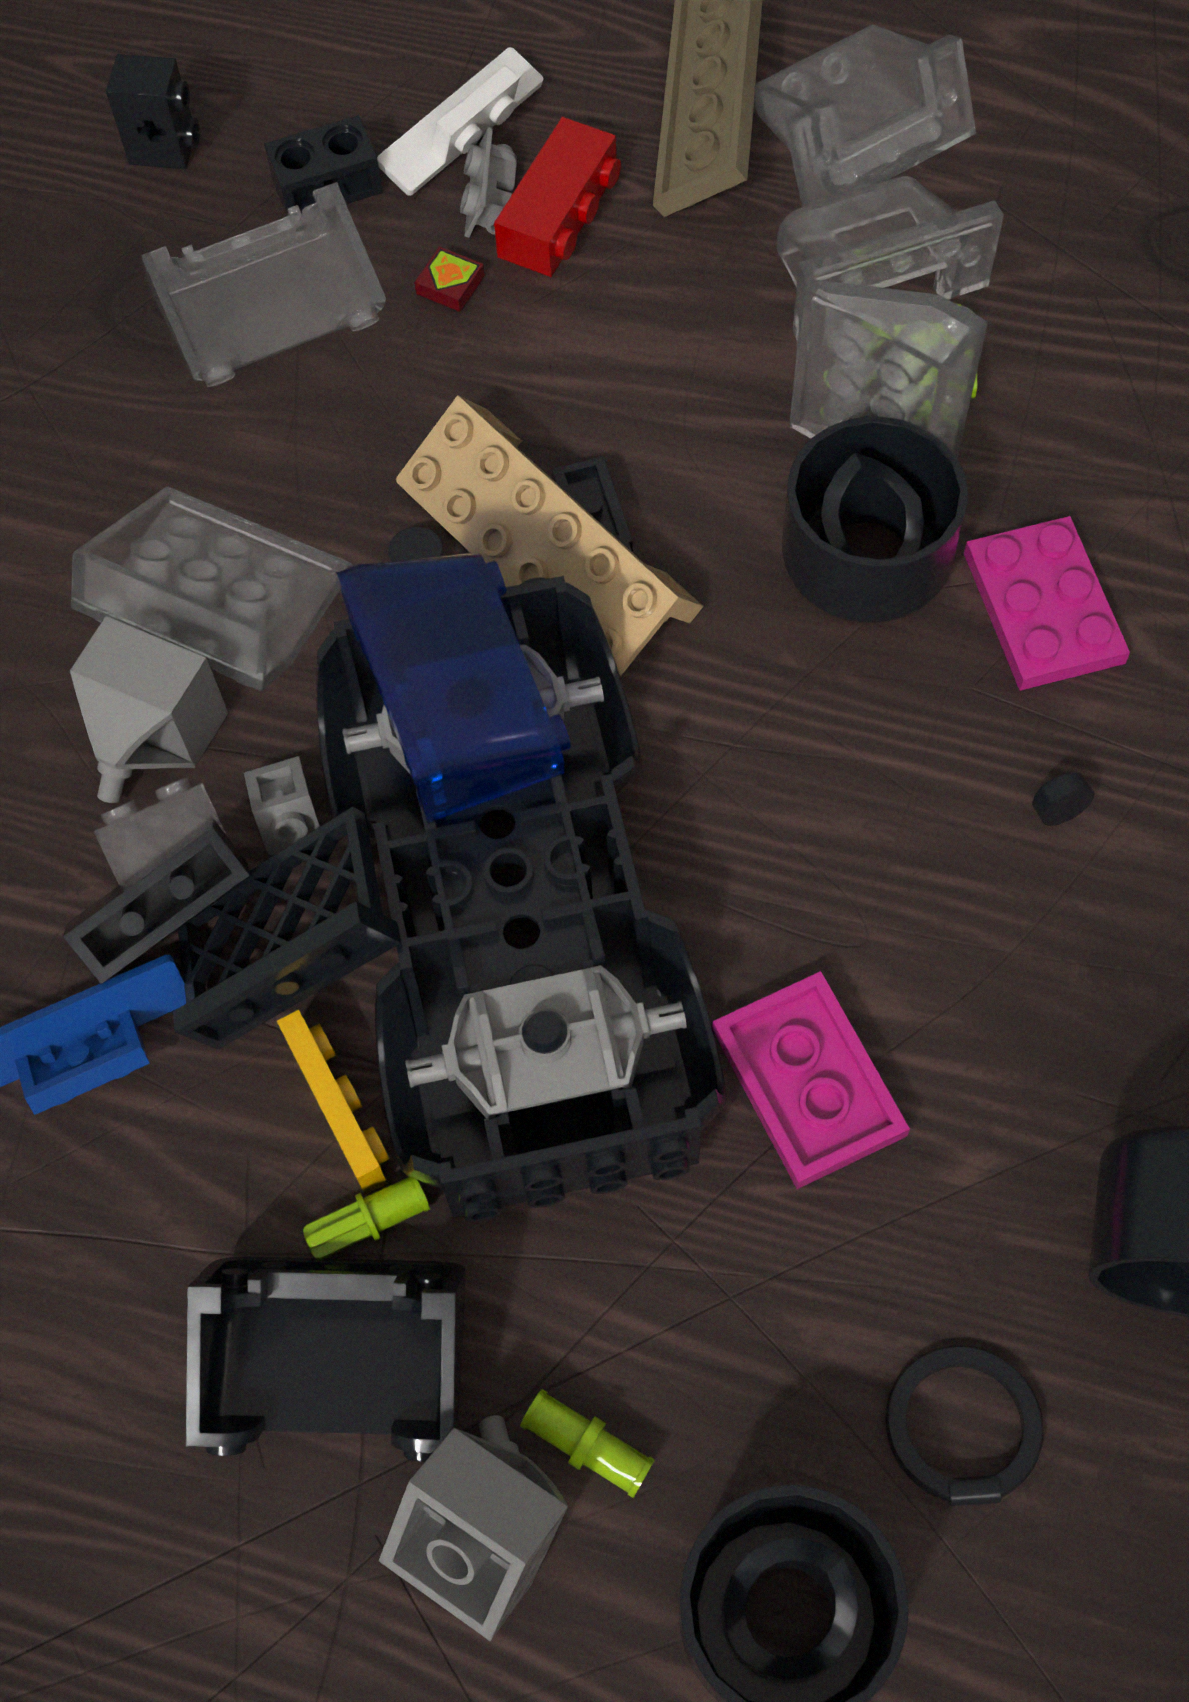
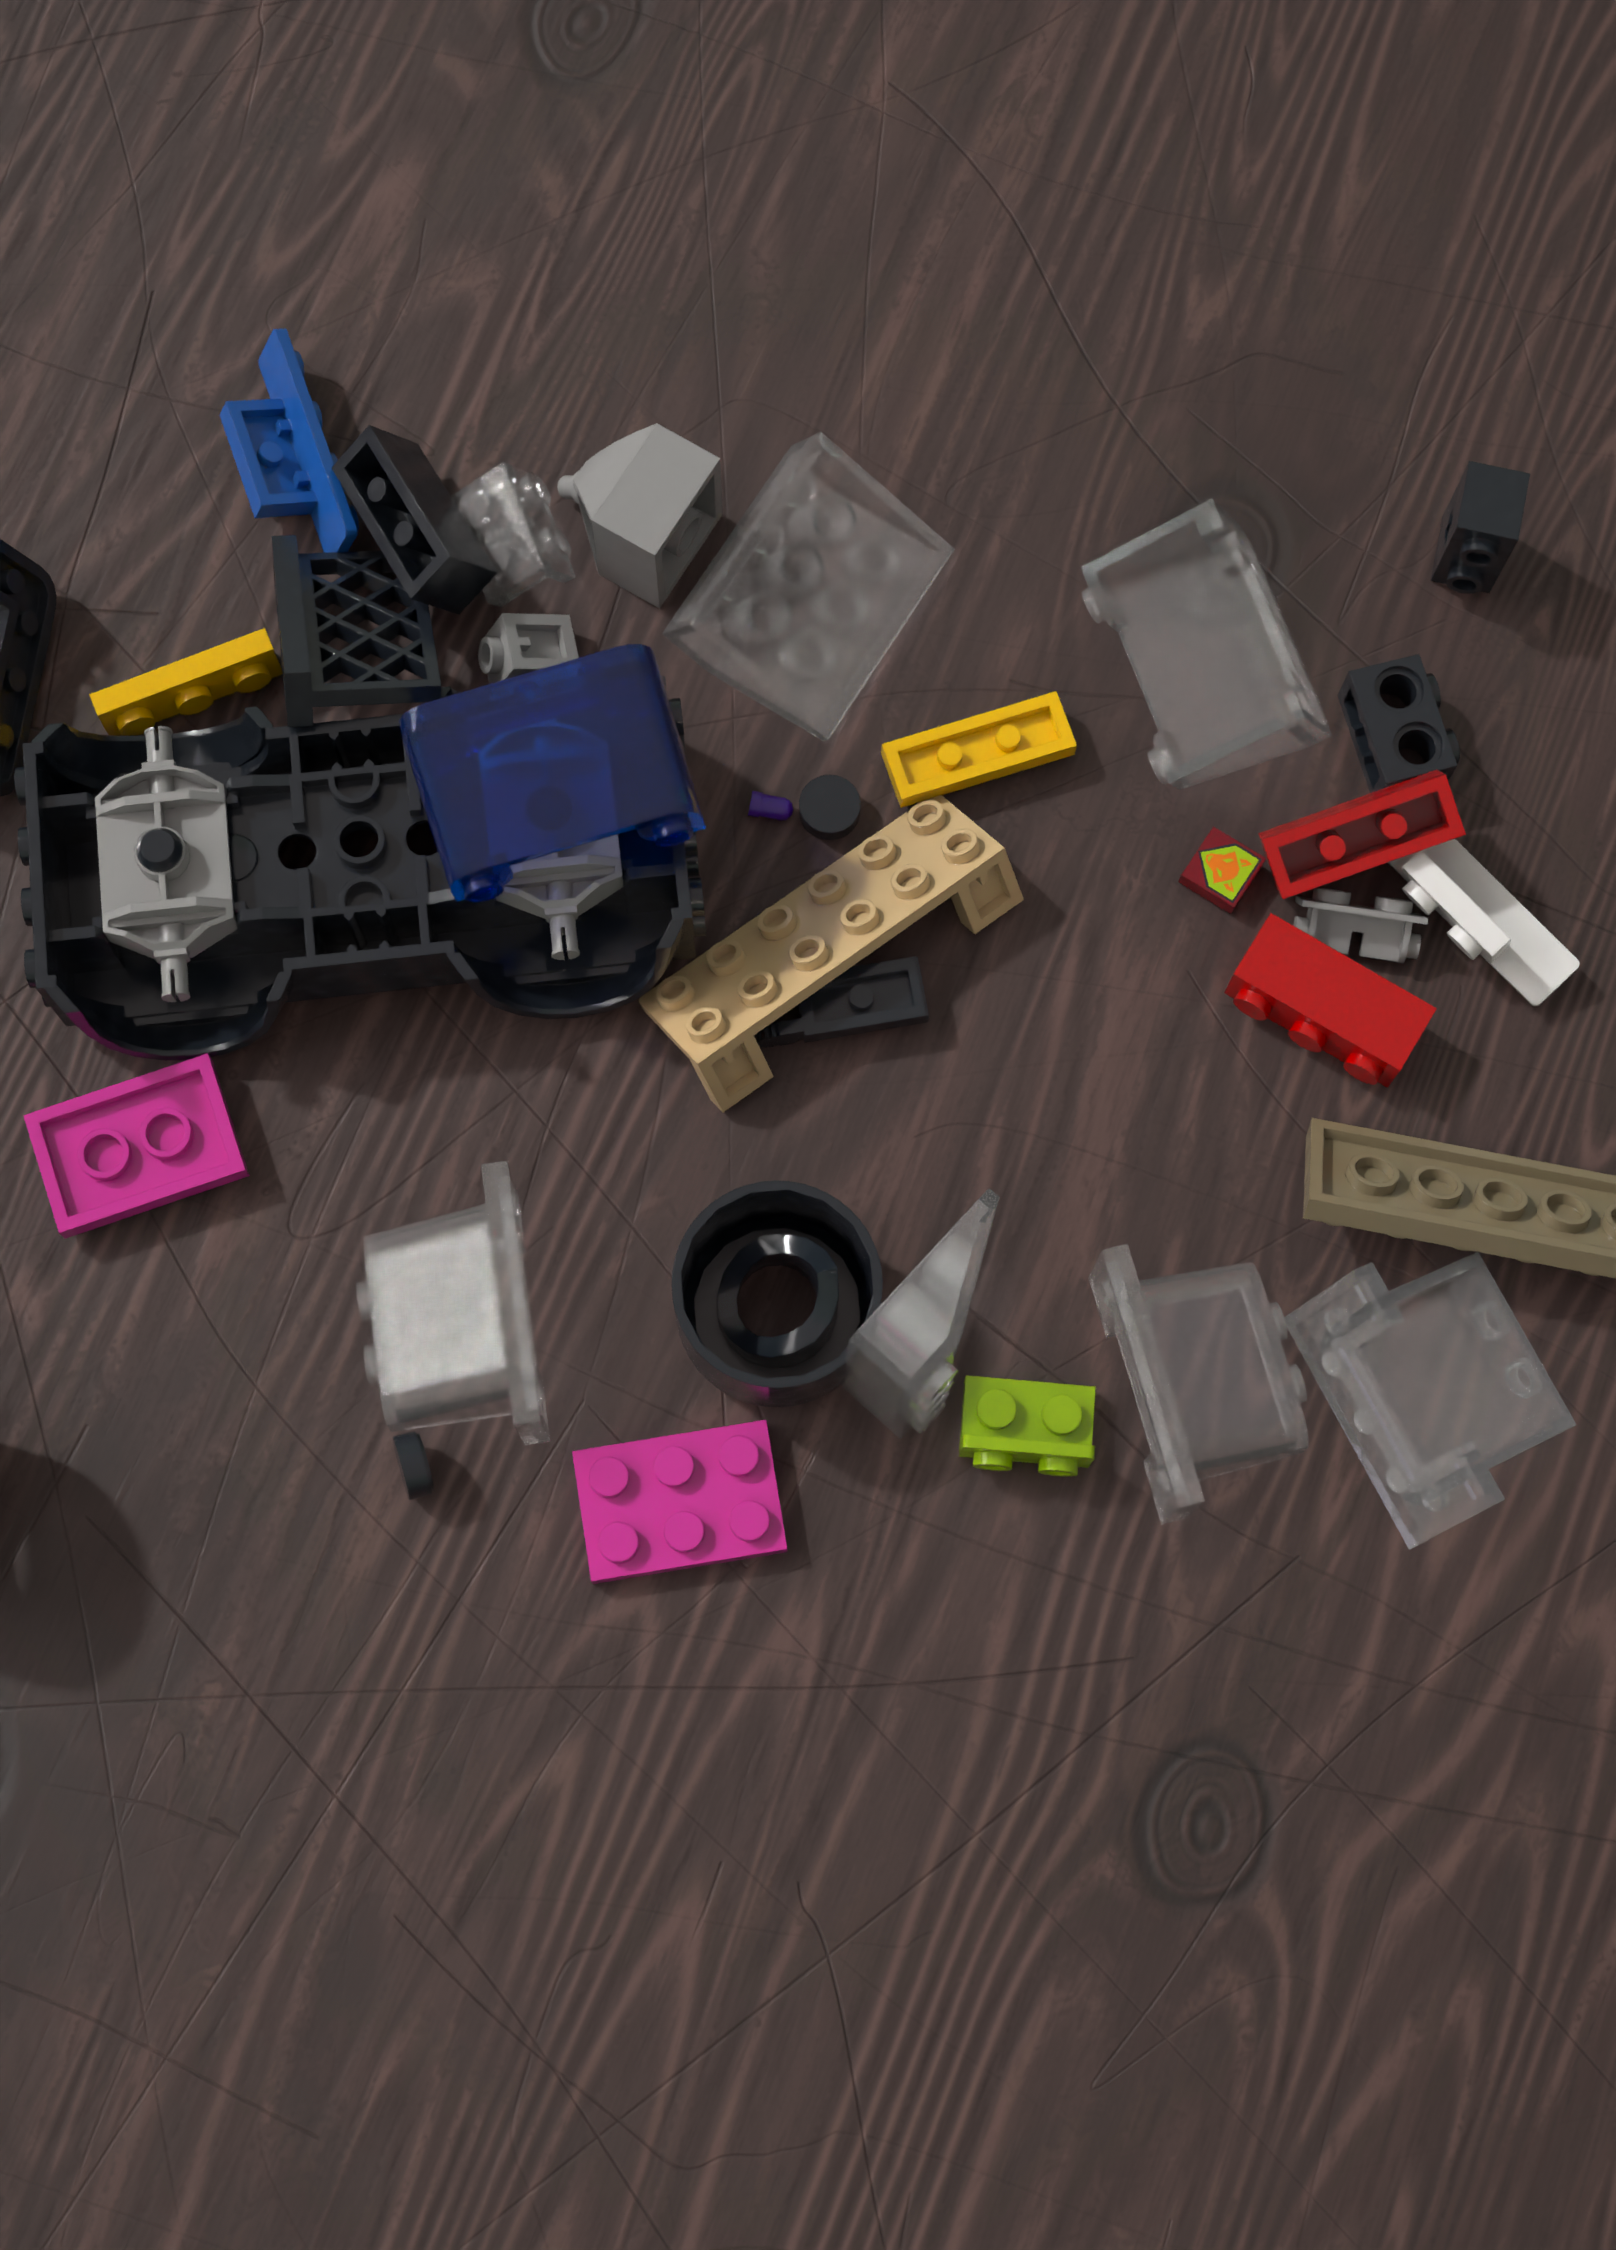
camera: 90 degrees right, 10 degrees up
(357, 447) = (978, 749): none -> yellow plate
(365, 1217) = (65, 693): lime axle -> none
(422, 167) = (1362, 833): none -> red brick
(925, 763) = (455, 1317): none -> clear windscreen

